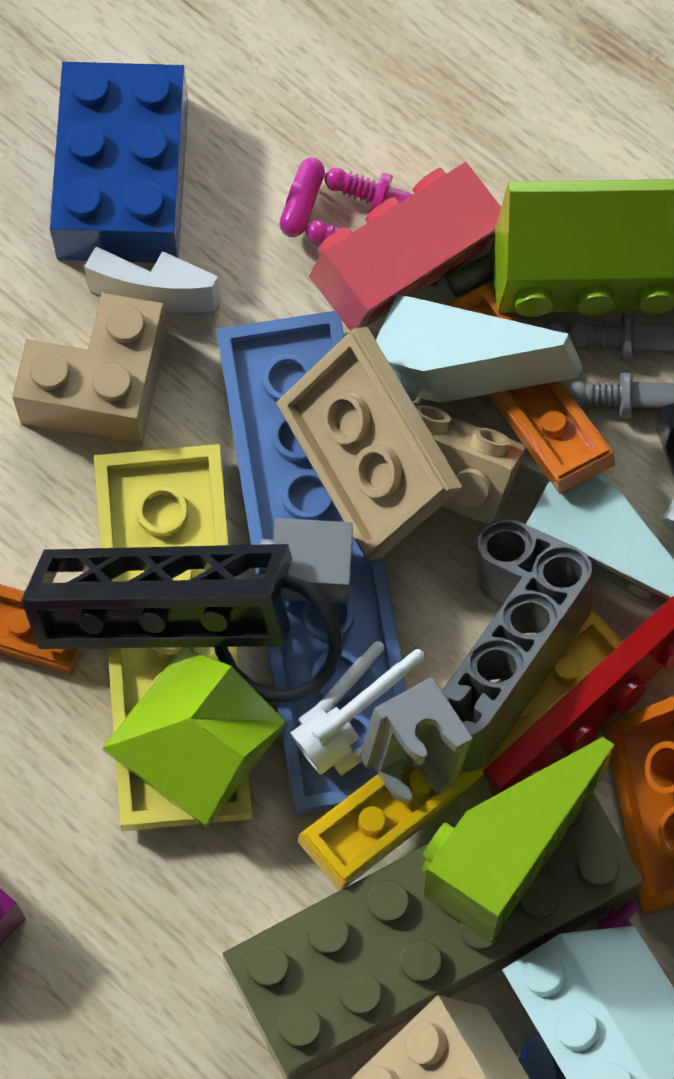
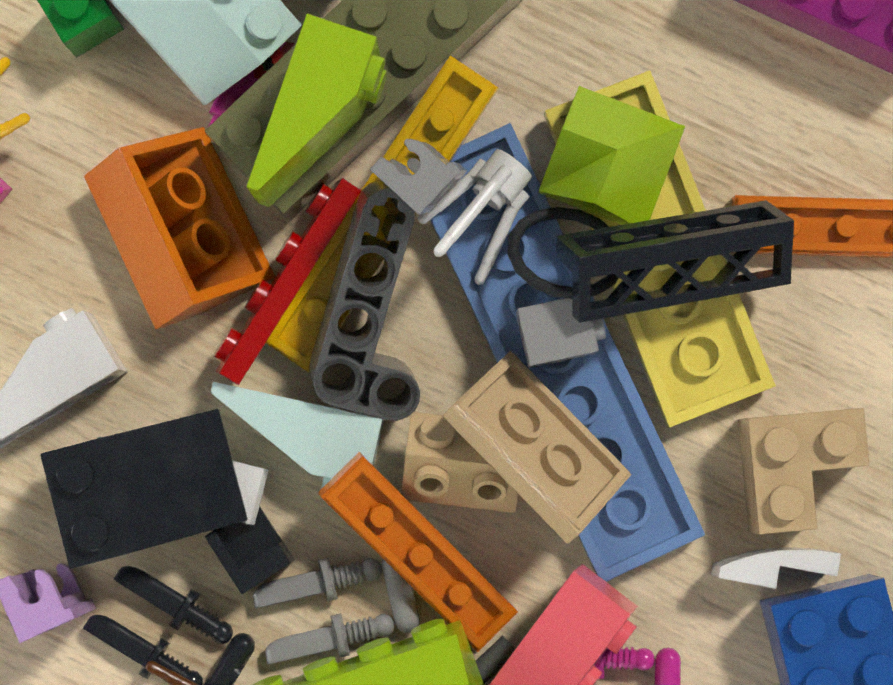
camera: 165 degrees right, 15 degrees up
(465, 354) = (483, 557): light aqua slope -> none

